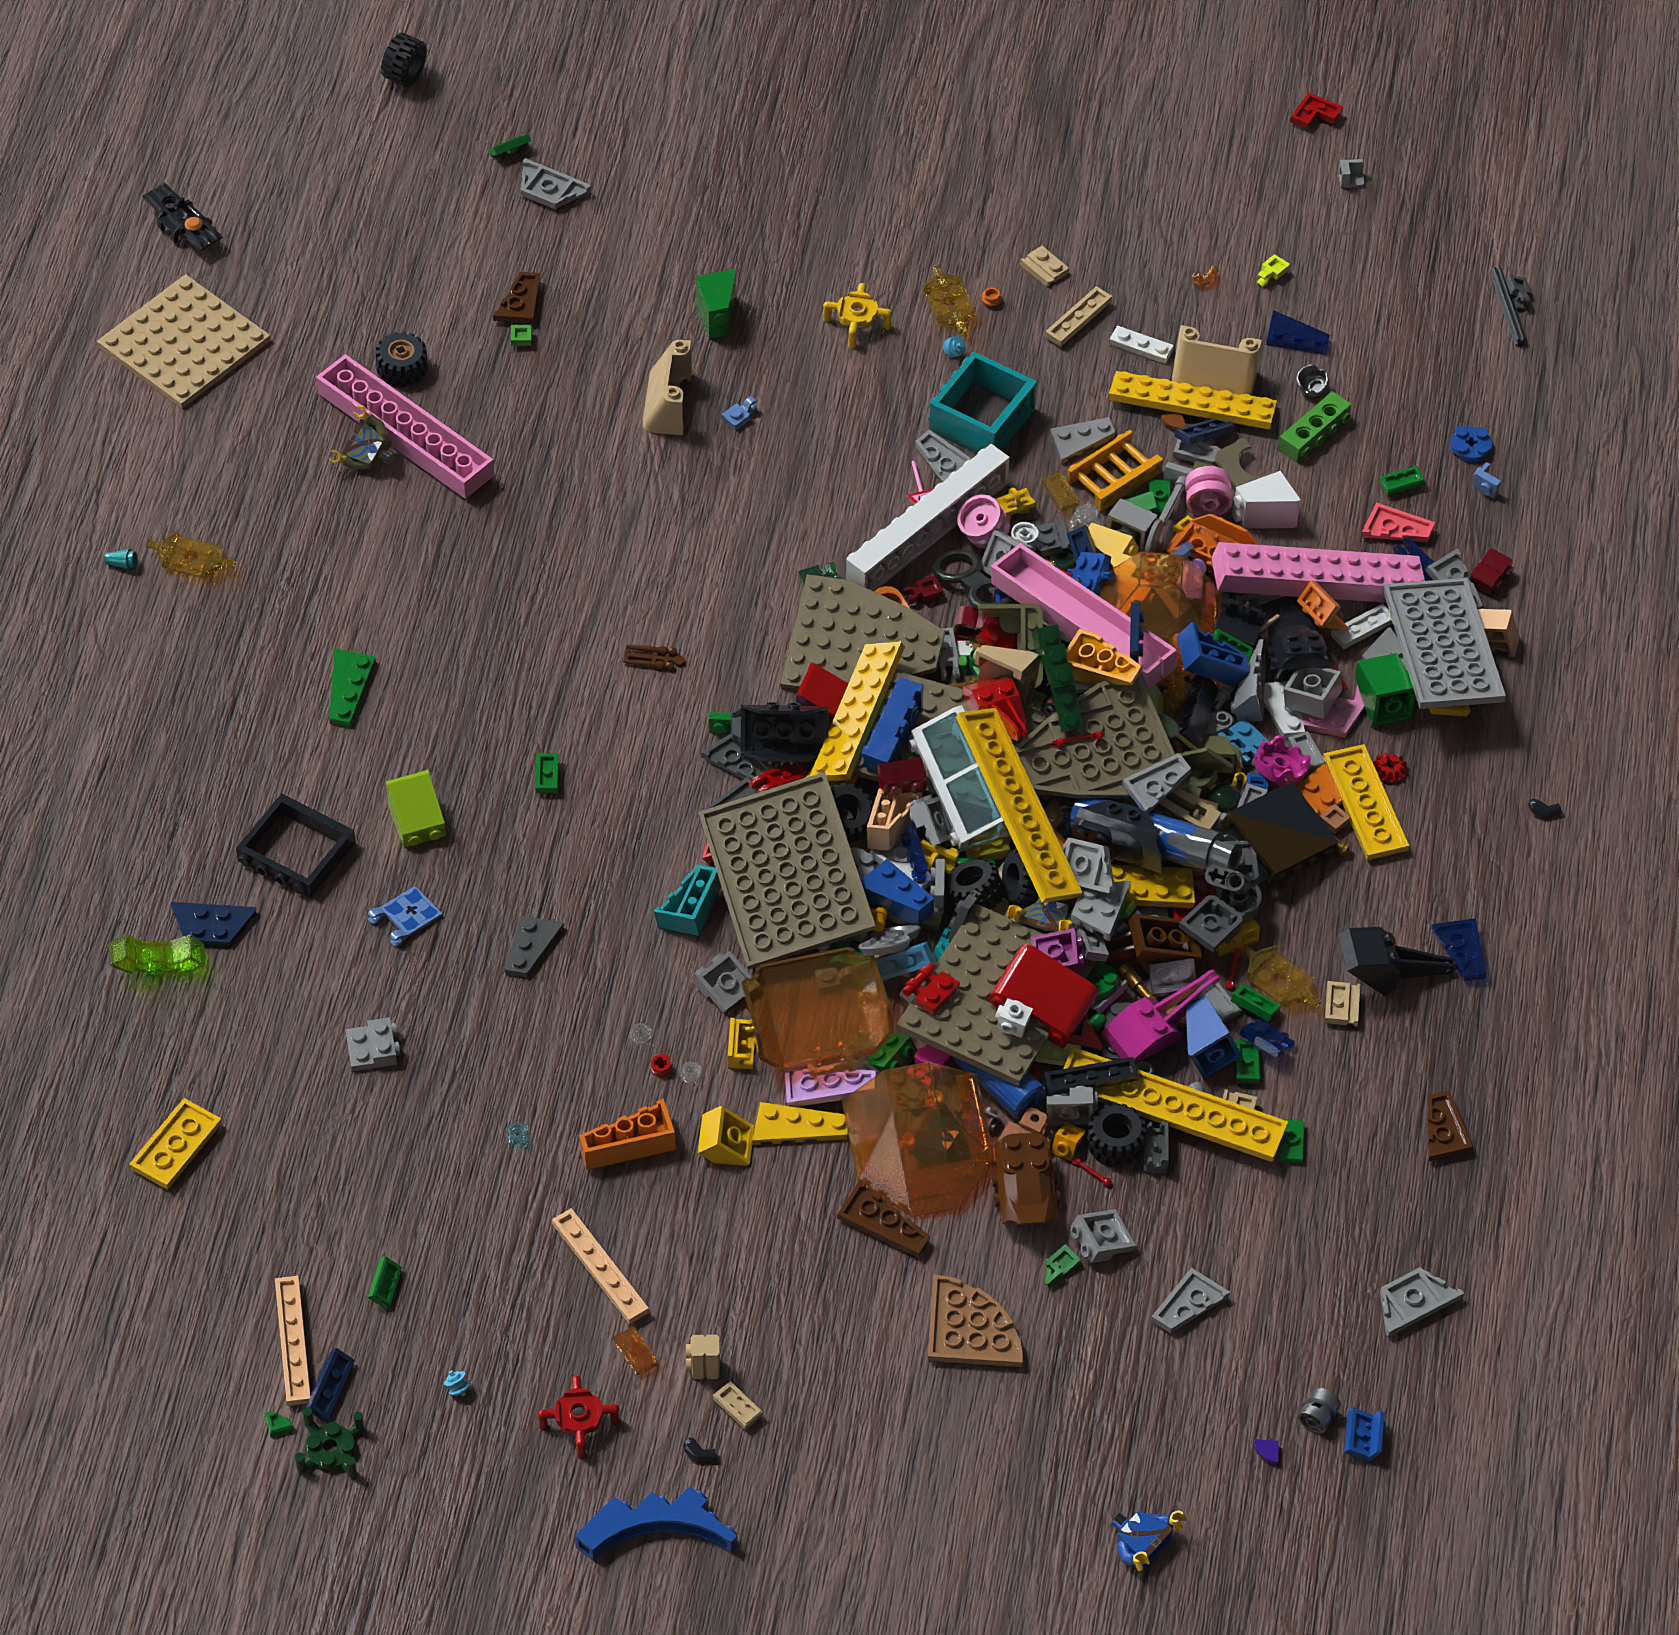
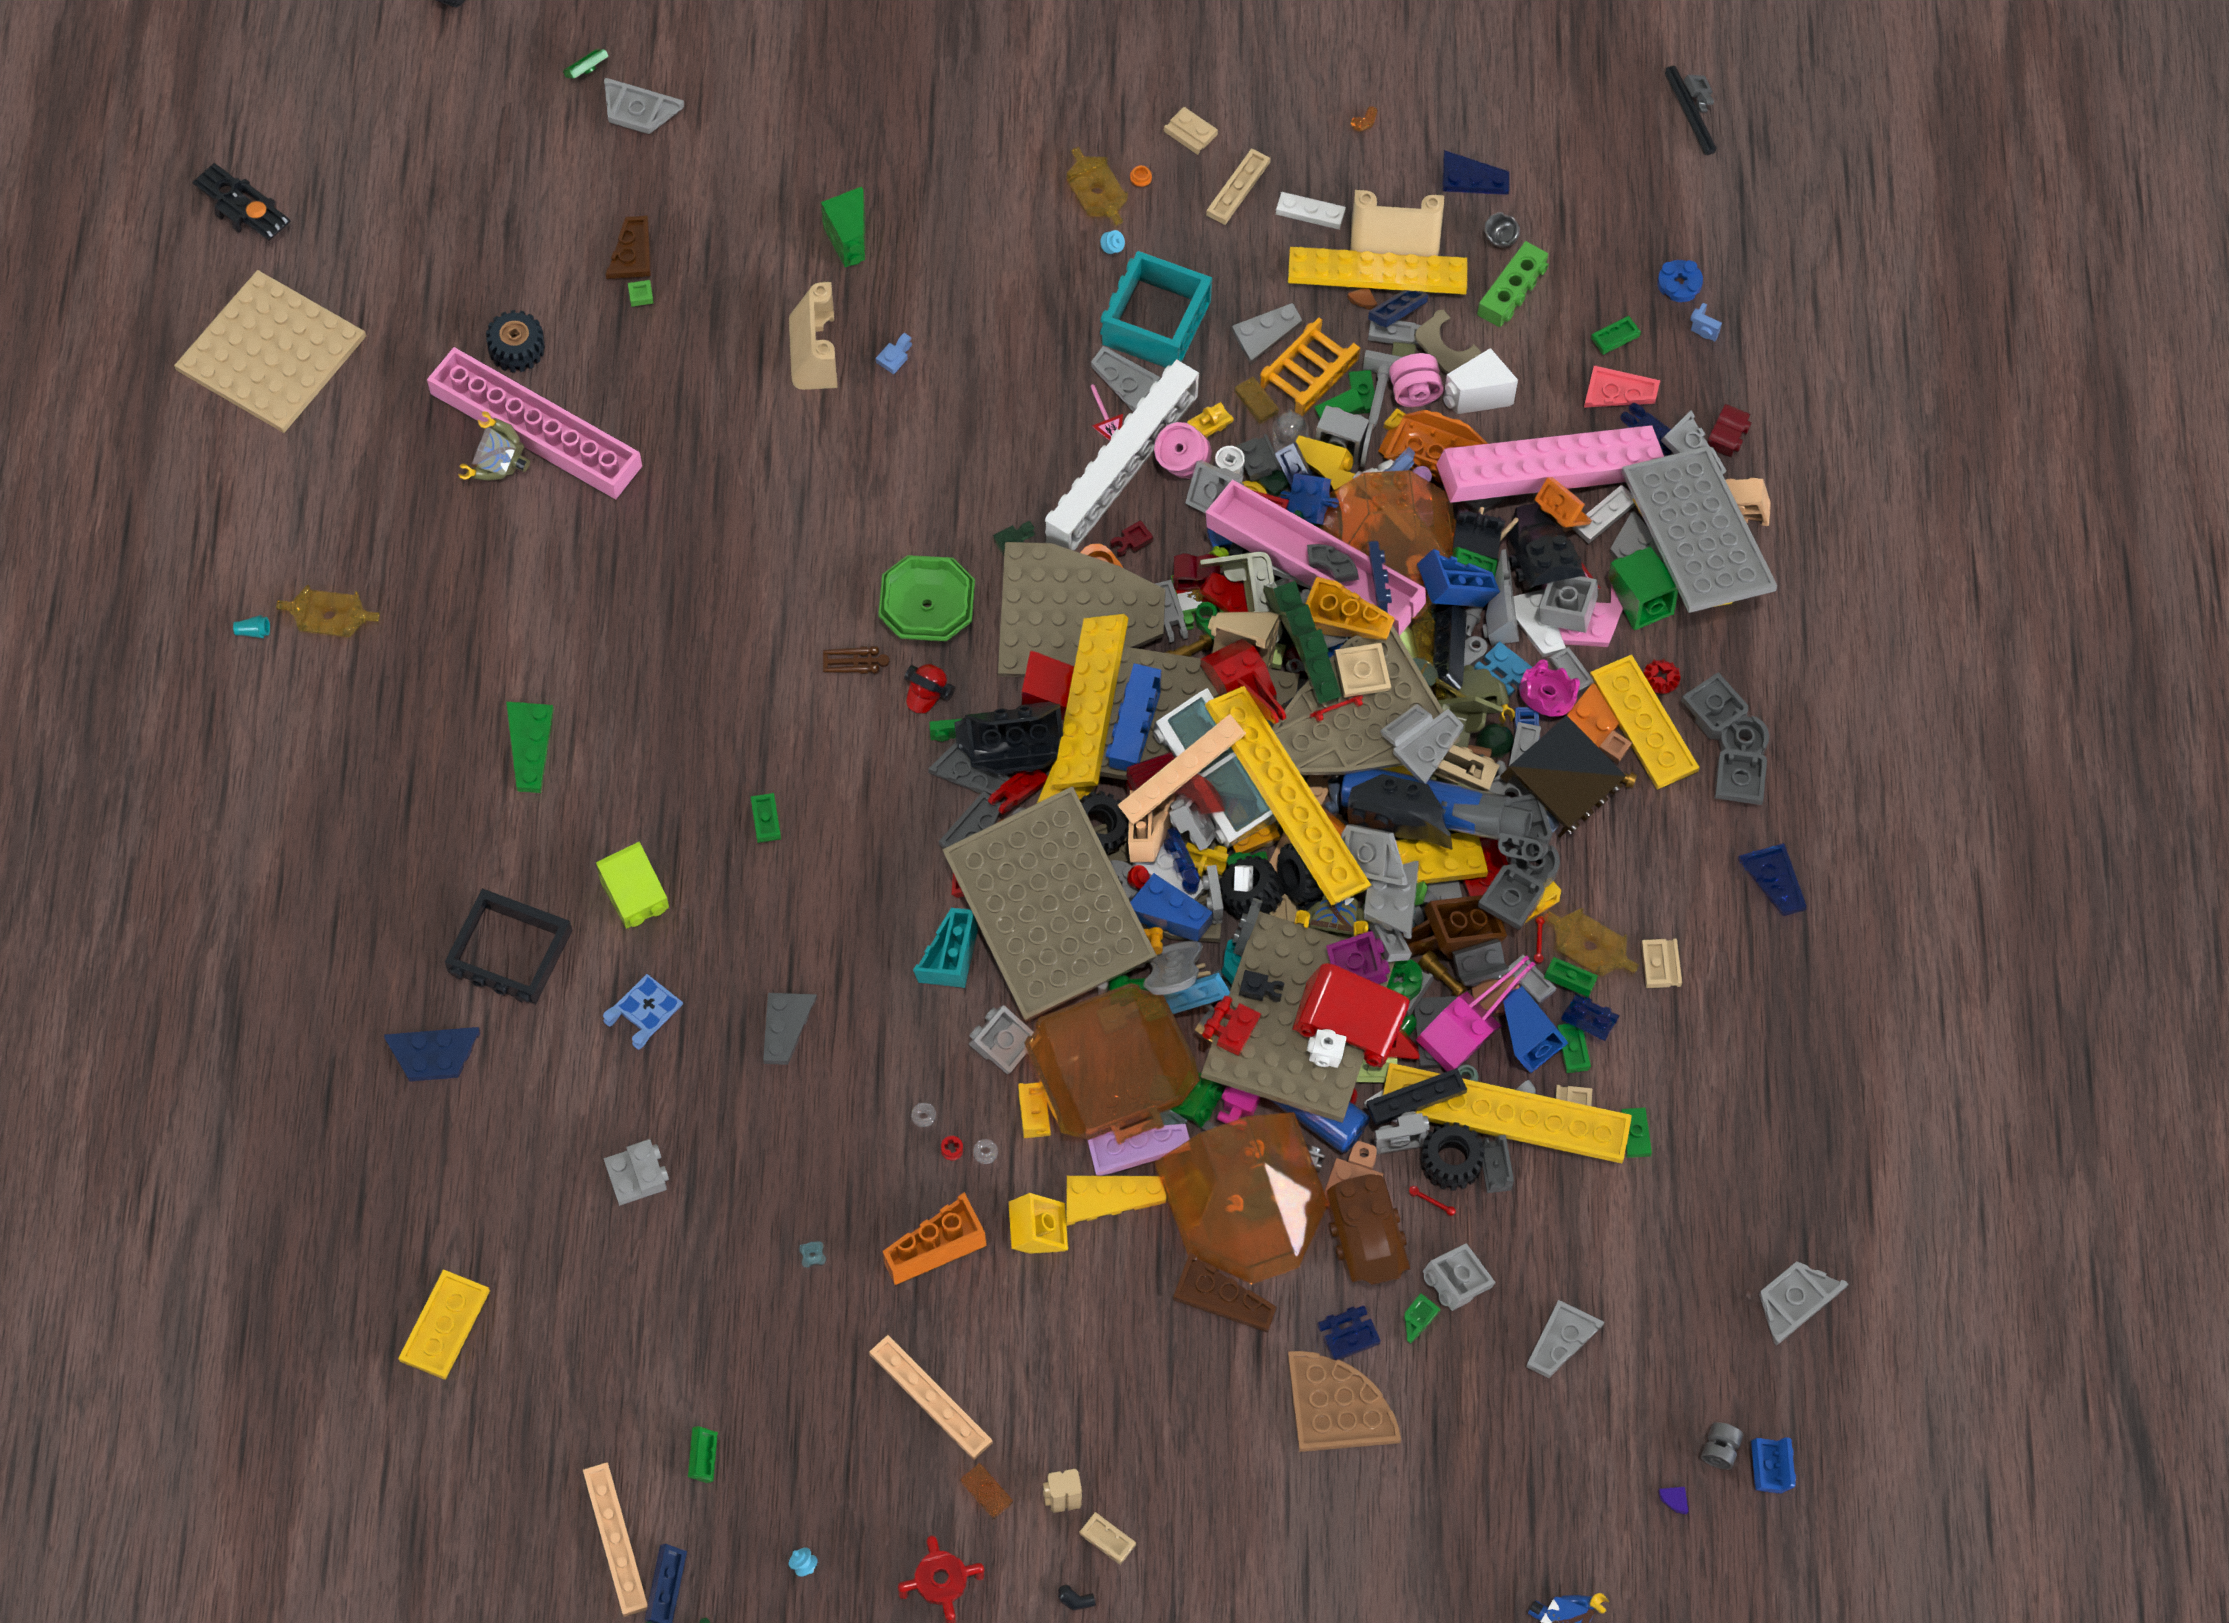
camera: 10 degrees left, 10 degrees up
(156, 957) = (381, 1105): clear neon green brick -> none
(713, 685) = (926, 687): none -> red cap
(727, 611) = (921, 582): none -> bright green rock
(857, 318) = (1001, 224): yellow plate -> none
(872, 860) = (1138, 876): none -> red plate
(925, 769) = (1181, 769): none -> light nougat plate
(938, 791) = (1202, 794): none -> clear red tile
(962, 960) = (1256, 986): none -> black plate
(968, 874) = (1243, 878): none -> white piece
(971, 579) = (1180, 520): pearl dark grey bar -> none
(992, 1274) = (1351, 1339): none -> clear blue plate
(1067, 1141) = (1401, 1170): light orange bracket -> none
(1100, 621) = (1333, 561): none -> dark grey tile
(1106, 709) = (1362, 670): none -> tan plate
(1138, 761) = (1406, 725): none -> light grey tile
(1273, 267) = (1435, 99): neon yellow plate -> none
(1380, 964) = (1695, 913): black slope -> none
(1445, 1128) = (1794, 1092): reddish brown wing -> none
(1454, 828) = (1724, 718): none -> dark grey plate
(1543, 810) = (1831, 703): black arm -> none

